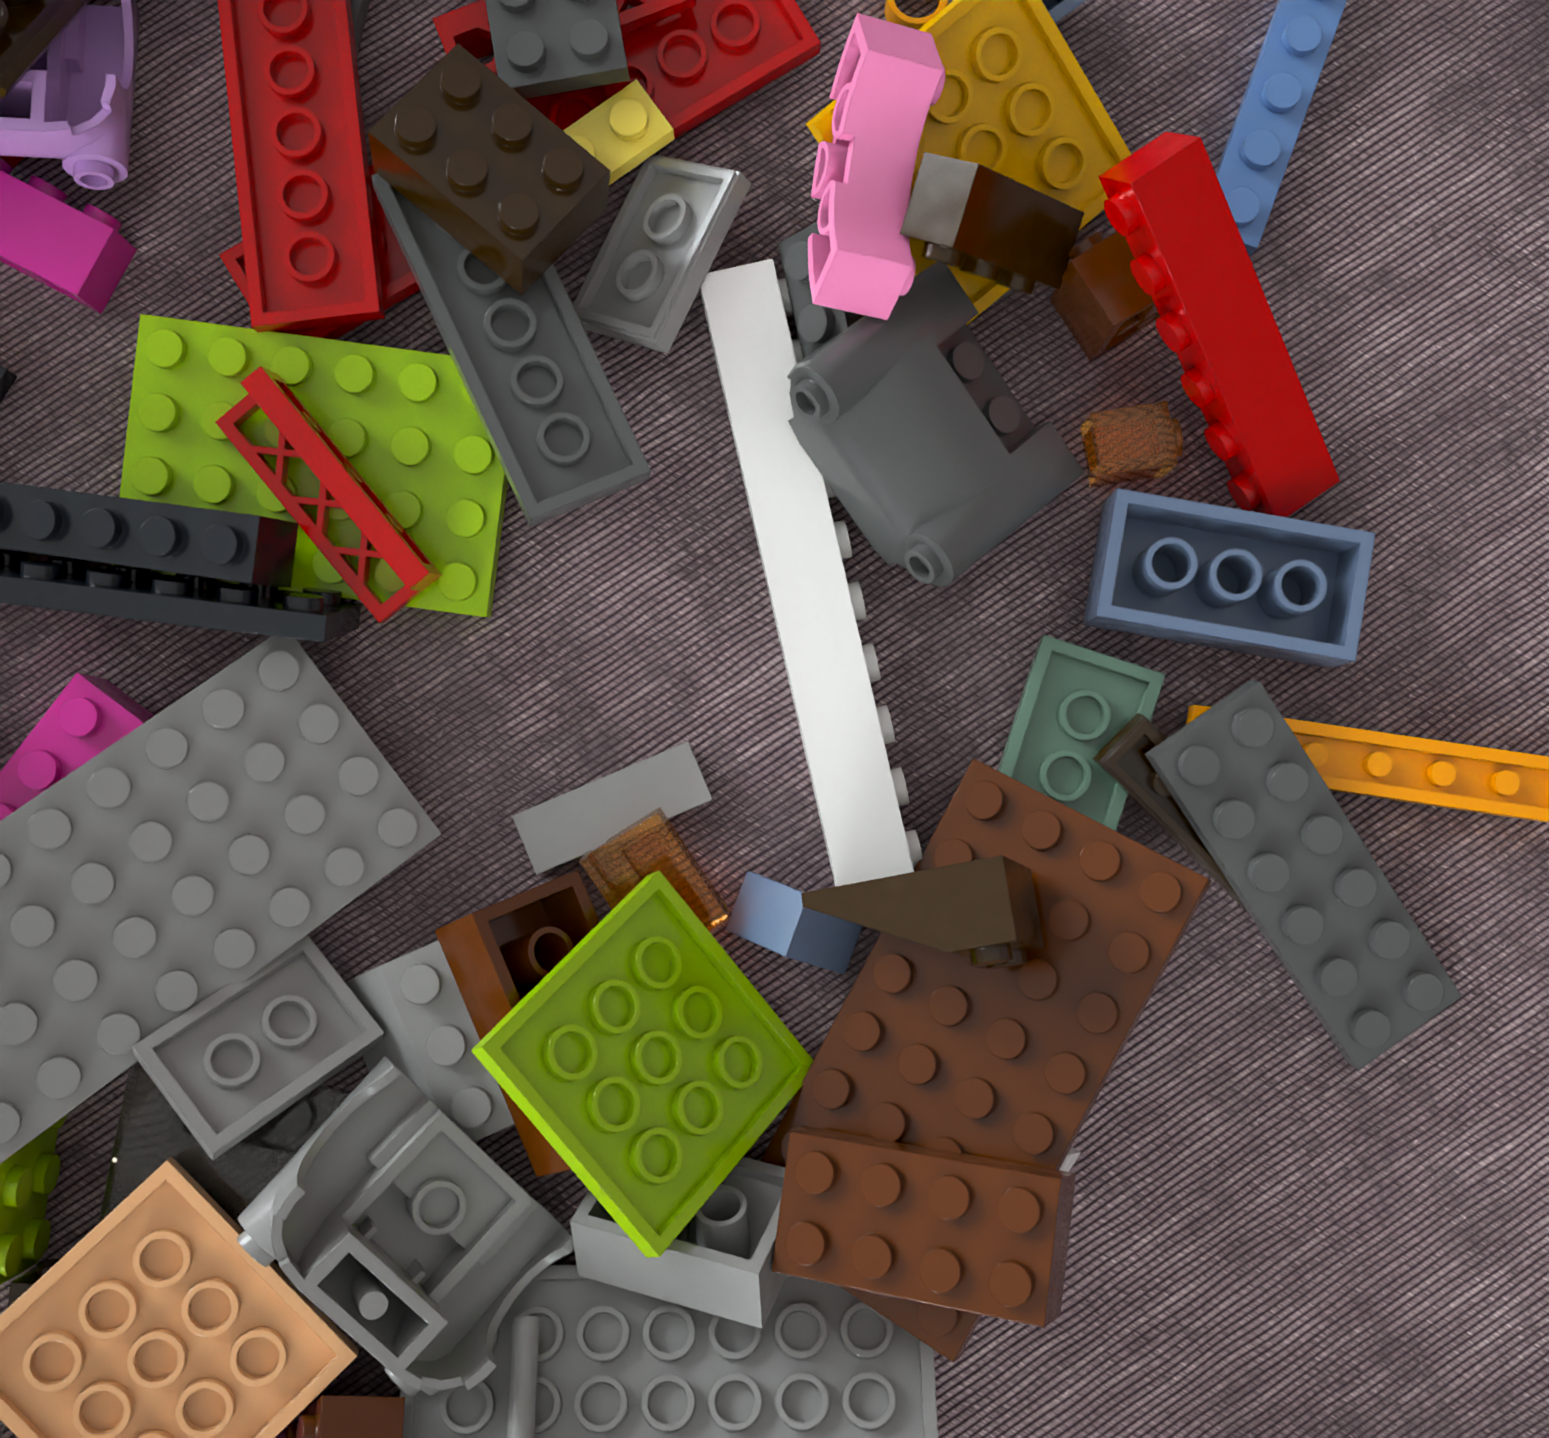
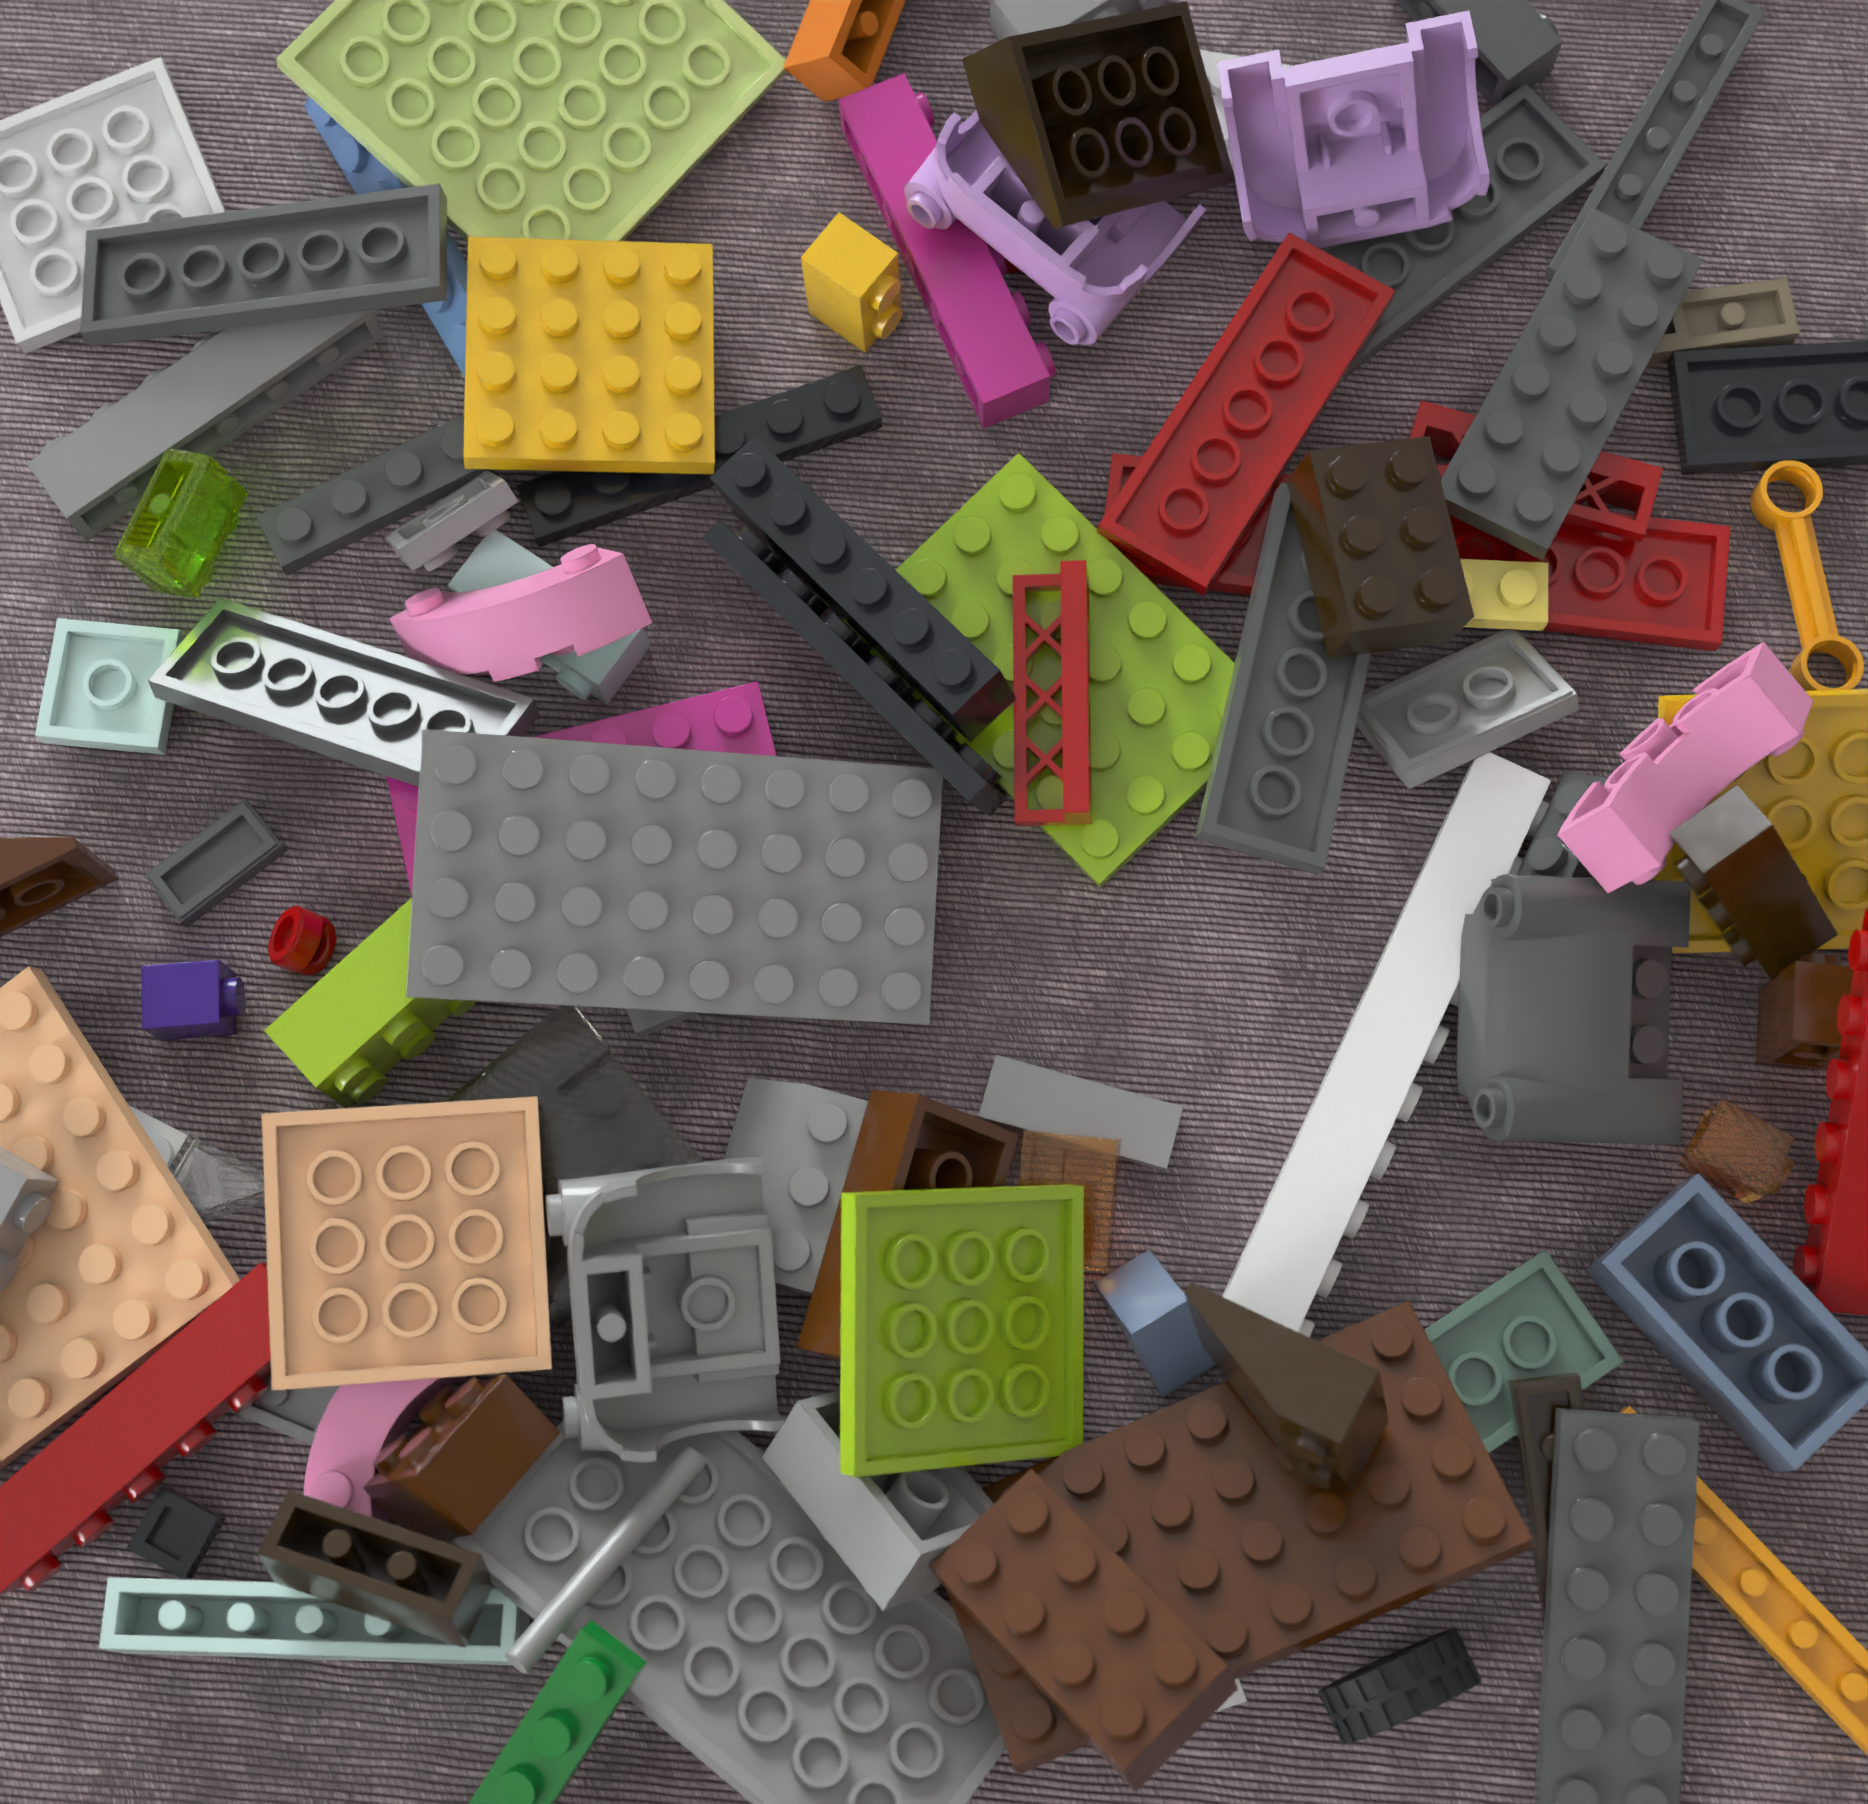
camera: 45 degrees right, 10 degrees down
(257, 1046) = (668, 1070): light grey plate -> none
(1187, 1057) = (1399, 1686): none -> black tyre

